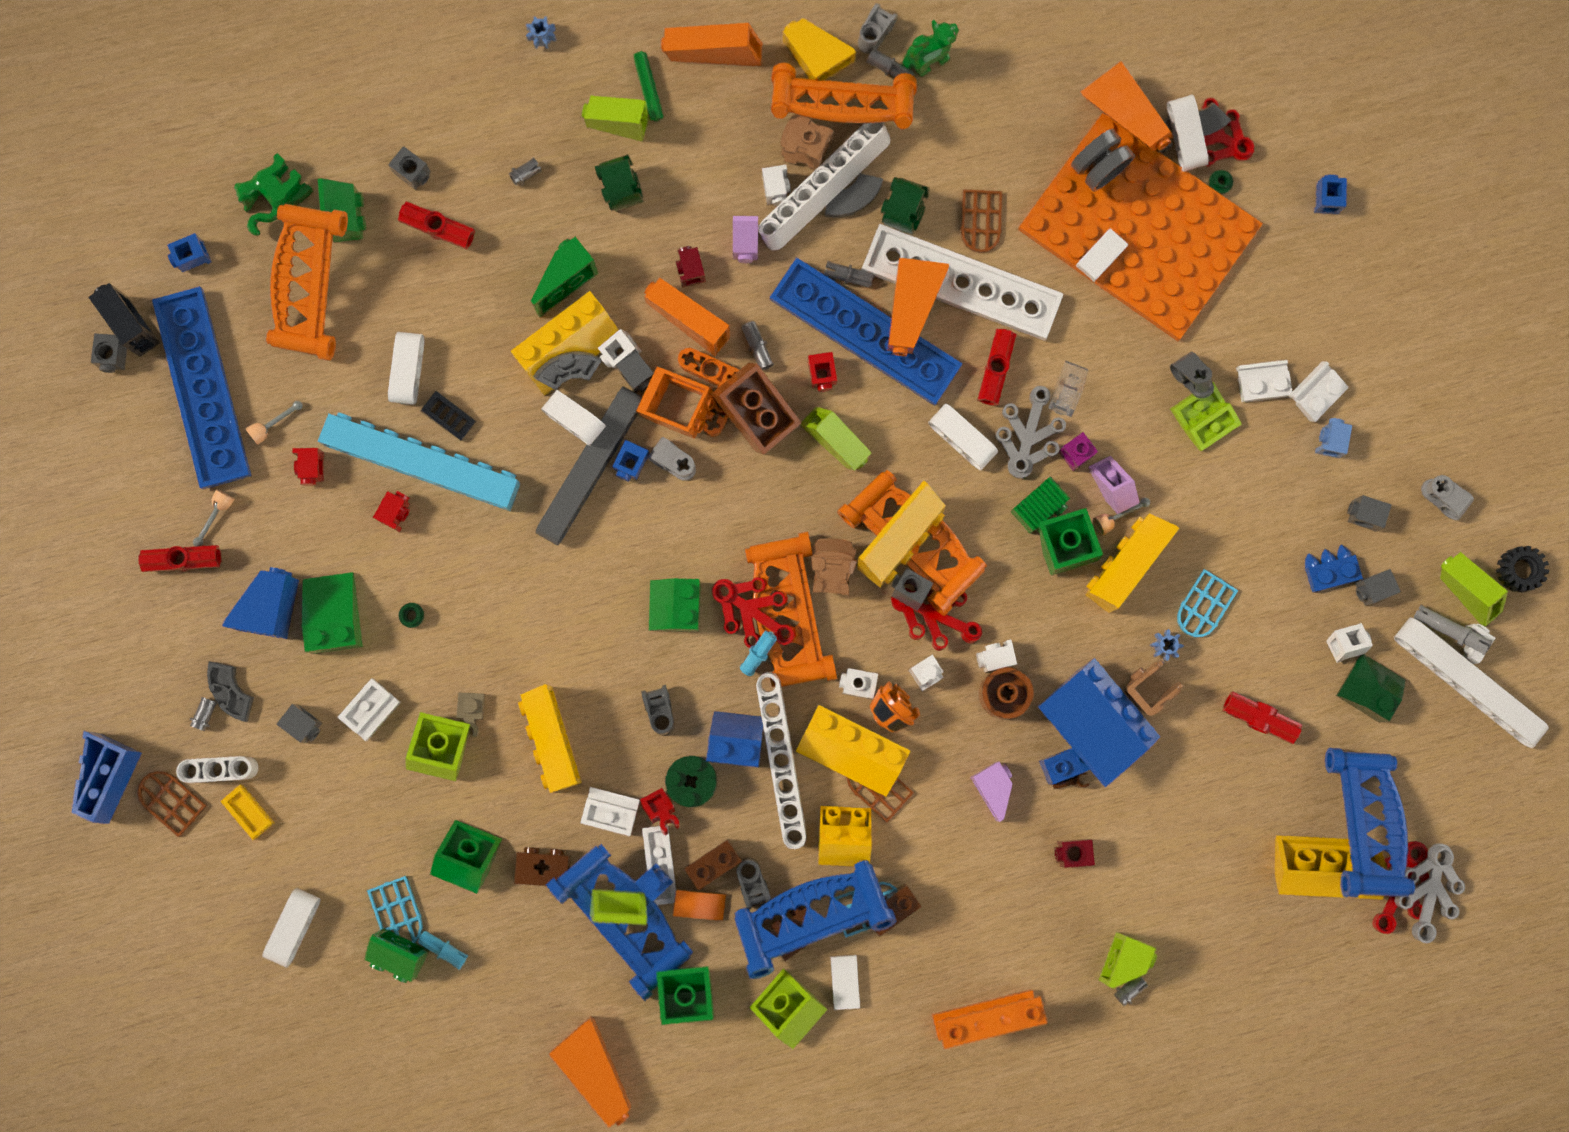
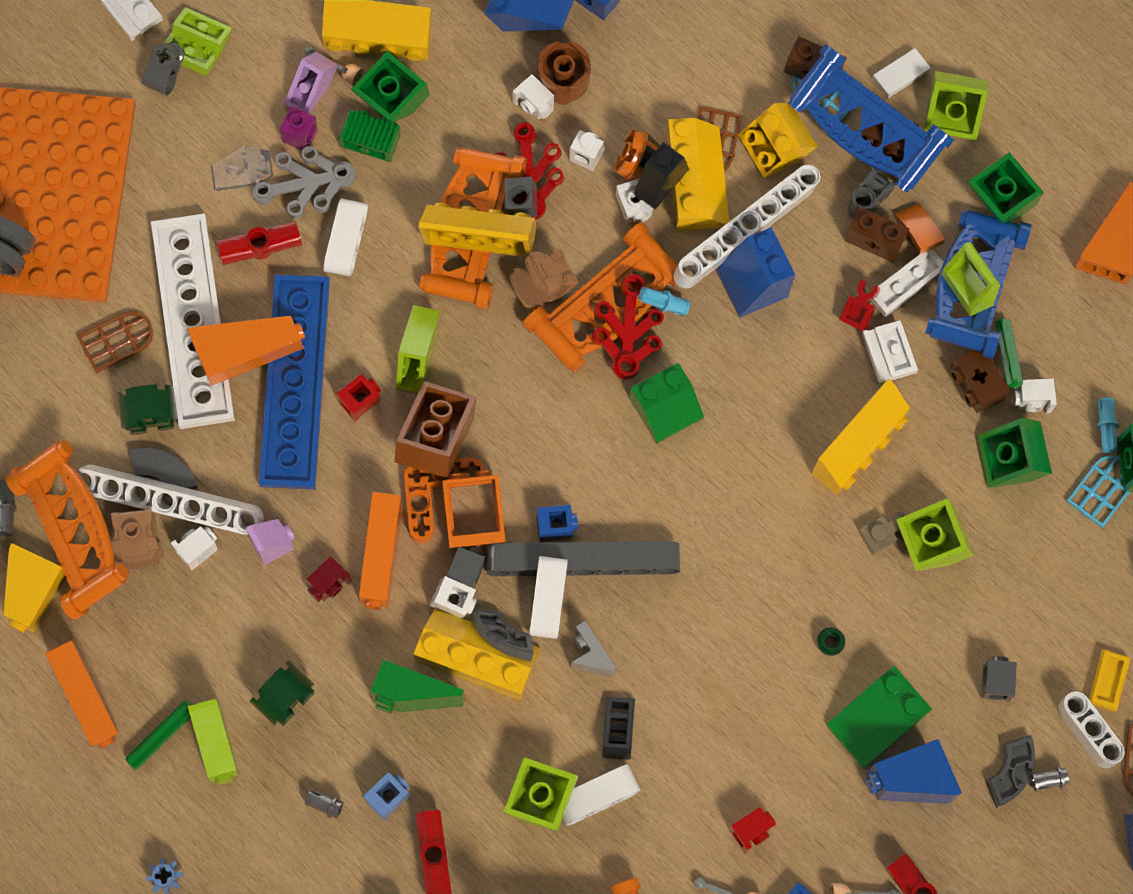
camera: 120 degrees left, 10 degrees down
(369, 709) = (943, 624): white plate -> none
(393, 510) = (744, 719): red brick -> none
(419, 462) = (682, 724): medium azure brick -> none
(427, 322) = (540, 795): none -> lime slope
(497, 210) = (375, 795): none -> medium blue brick
(502, 905) = (1035, 395): none -> white brick
(506, 427) = (596, 659): none -> light grey slope
(548, 906) = (1009, 353): none -> green axle
(654, 882) = (927, 270): blue brick -> none
(658, 708) = (768, 364): dark grey piece -> none
(669, 457) = (529, 488): light grey piece -> none
(676, 780) = (820, 280): dark green brick -> none
(757, 345) = (369, 473): flat silver axle -> none
(849, 274) = (246, 428): flat silver axle -> none
(860, 709) = (660, 175): none -> black slope
(994, 788) = (653, 39): lavender slope -> none
(1102, 255) = (92, 205): white tile -> none

